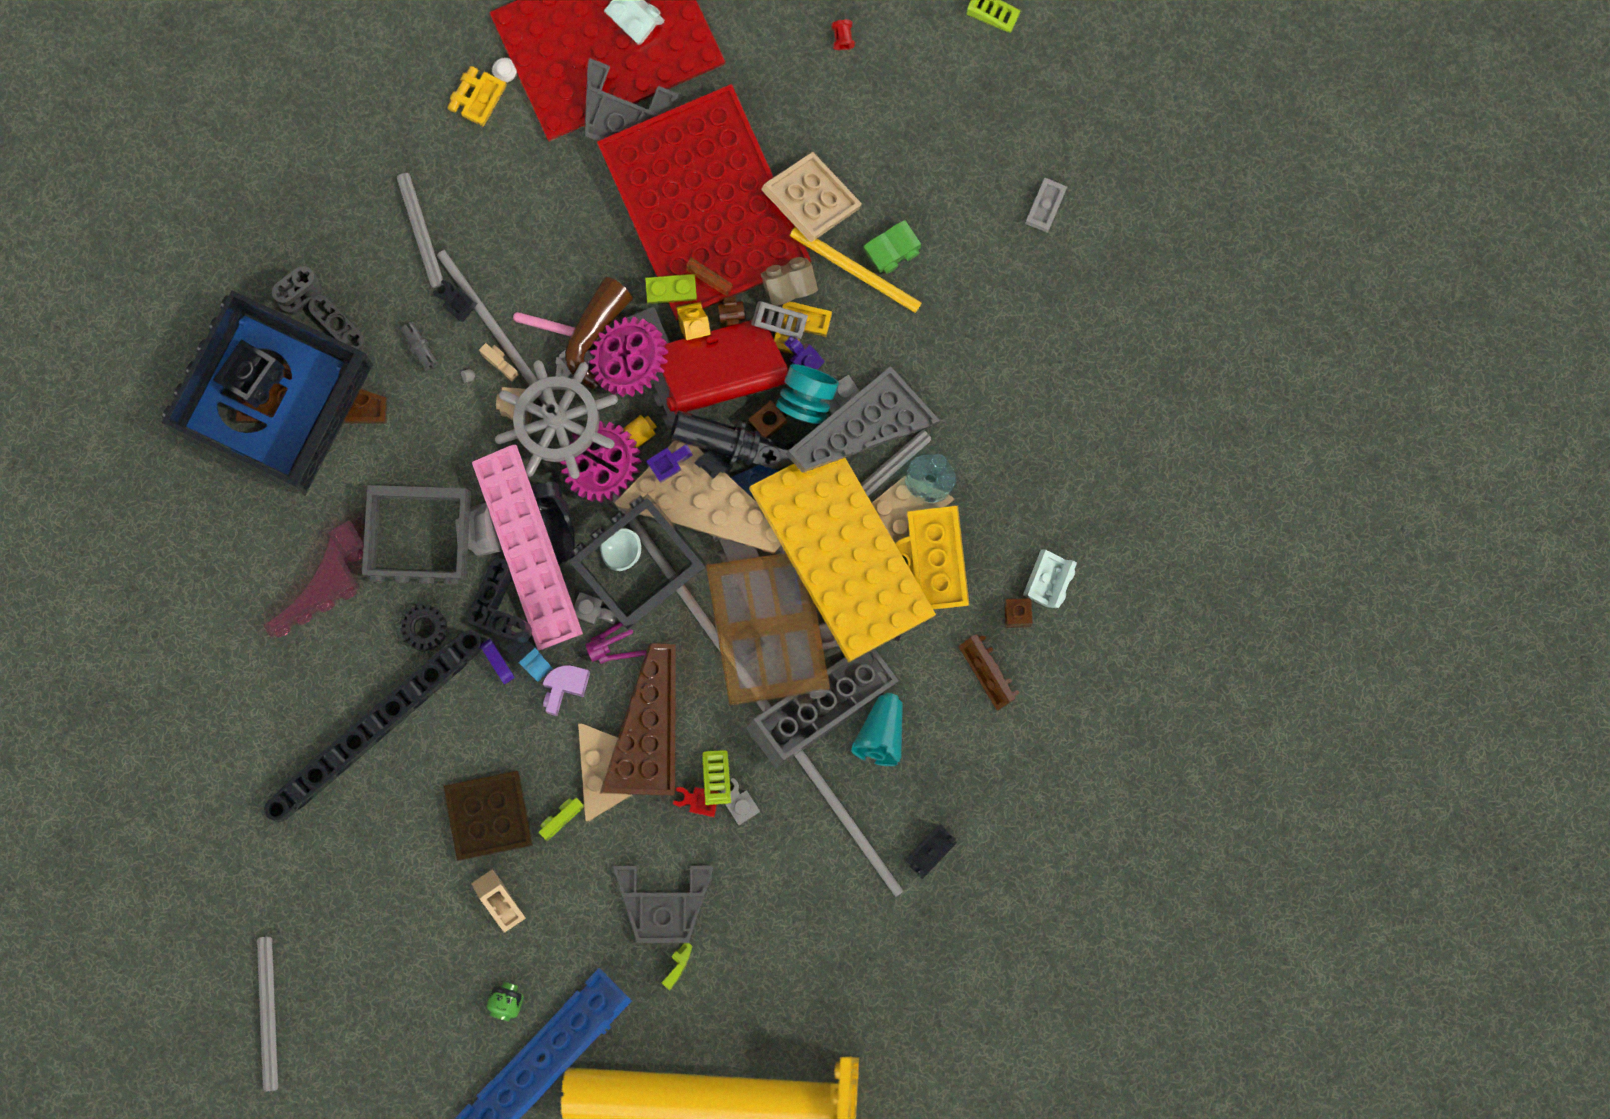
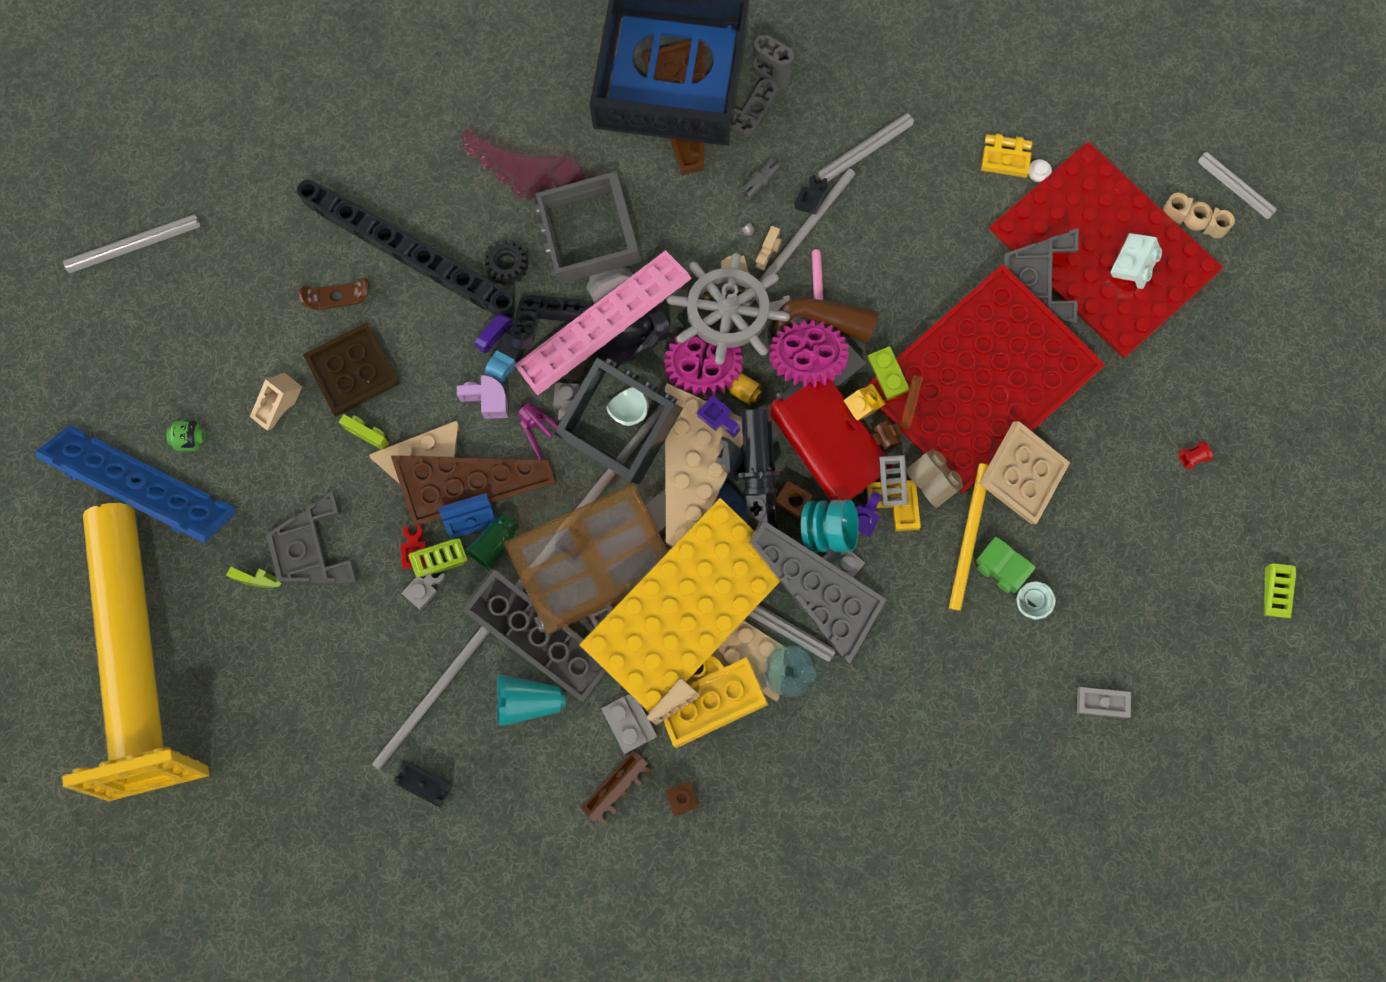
camera: 75 degrees right, 5 degrees down
(250, 374) = (683, 46): black plate -> none
(403, 793) = (319, 298): none -> reddish brown piece
(683, 737) = (467, 516): none -> blue plate
(716, 720) = (490, 544): none -> dark green plant
(925, 585) = (677, 698): none -> tan slope
(930, 225) = (1040, 595): none -> light aqua hair
(931, 642) = (629, 723): none -> light grey plate
(1050, 579) = (726, 821): light aqua bracket -> none

